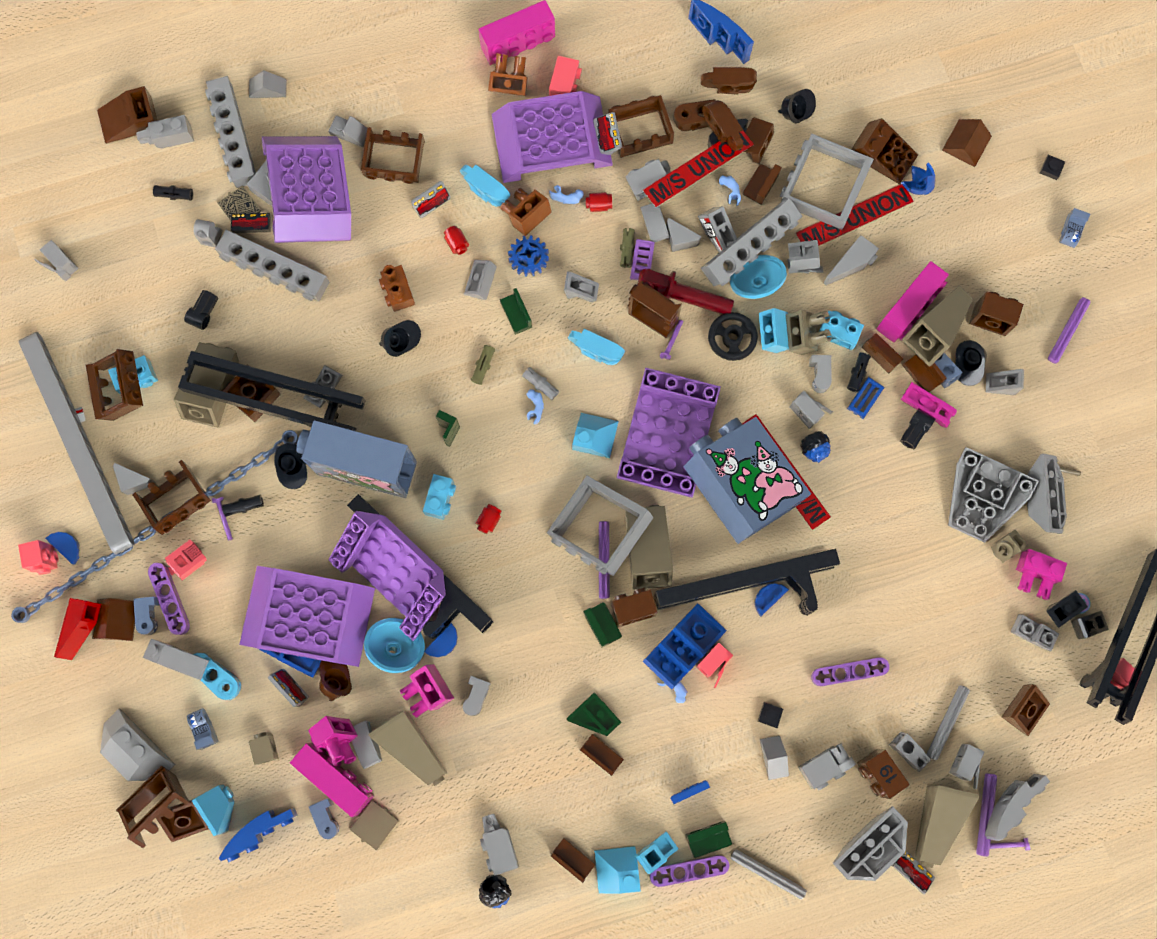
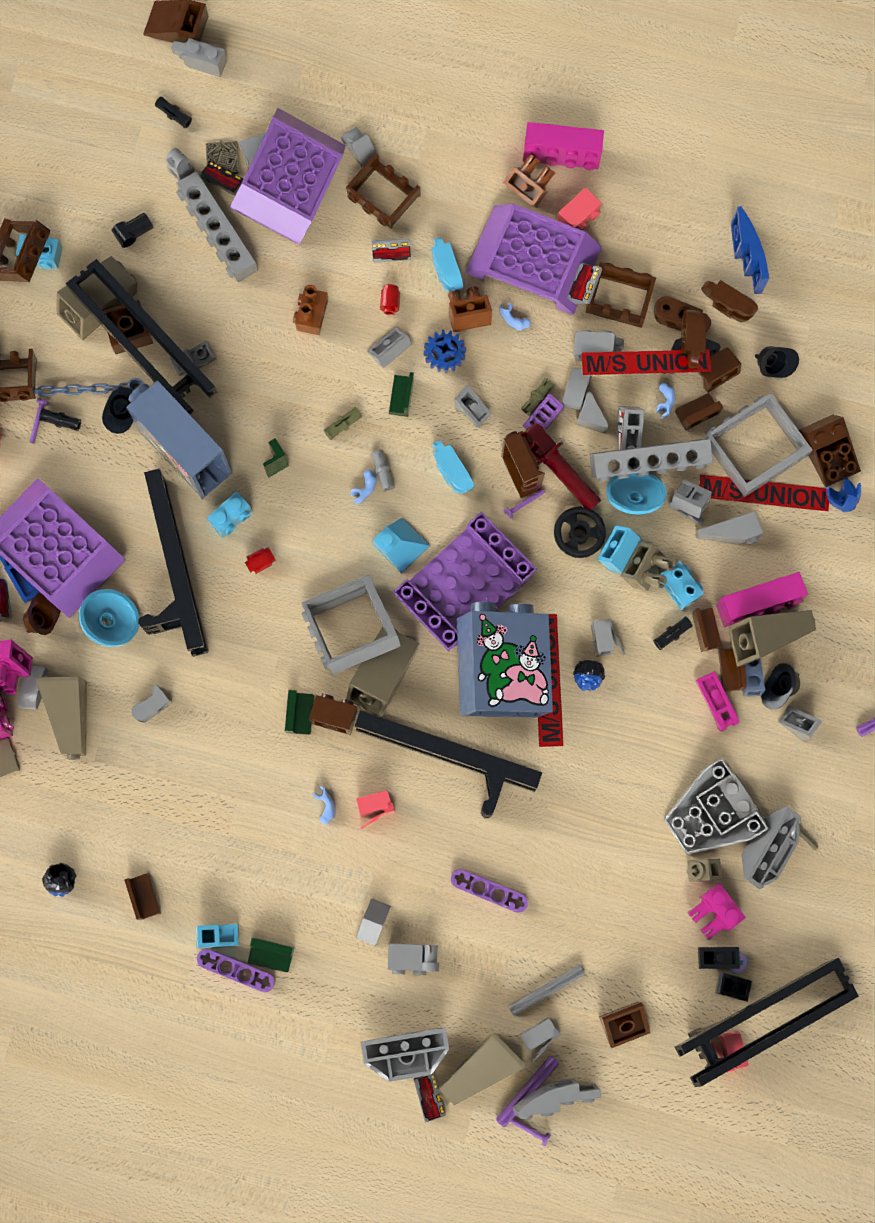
camera: 30 degrees right, 0 degrees up
(59, 259) = (39, 113): light grey piece -> none
(217, 90) = (274, 46): light grey brick -> none
(267, 86) = (314, 65): light grey slope -> none
(392, 567) = (148, 547): medium lavender slope -> none
(400, 338) = (286, 356): black piece -> none
(431, 688) = (117, 673): dark pink brick -> none
(443, 643) = (154, 643): blue tile -> none
(498, 846) = (87, 844): light grey hinge -> none
(595, 716) = (241, 787): dark green wing -> none
(599, 202) = (538, 340): red brick -> none
(601, 754) = (225, 823): reddish brown panel -> none
(604, 580) = (343, 648): medium lavender axle -> none
(617, 870) = (175, 930): medium azure slope -> none
(684, 646) = (357, 775): blue slope -> none
(690, 791) = (281, 903): blue tile -> none
(768, 597) = (460, 780): blue tile -> none
(768, 874) = (302, 1017): light grey axle -> none
(770, 715) = (394, 883): black plate -> none
(822, 372) = (635, 619): light grey leg -> none
(857, 410) = (649, 666): blue tile -> none
(882, 774) = (456, 995): reddish brown brick -> none
(910, 751) = (495, 993): light grey leg -> none
(919, 425) = (695, 714): black piece -> none
(996, 313) = (832, 656): reddish brown brick -> none
(1034, 633) = (678, 962): light grey slope -> none

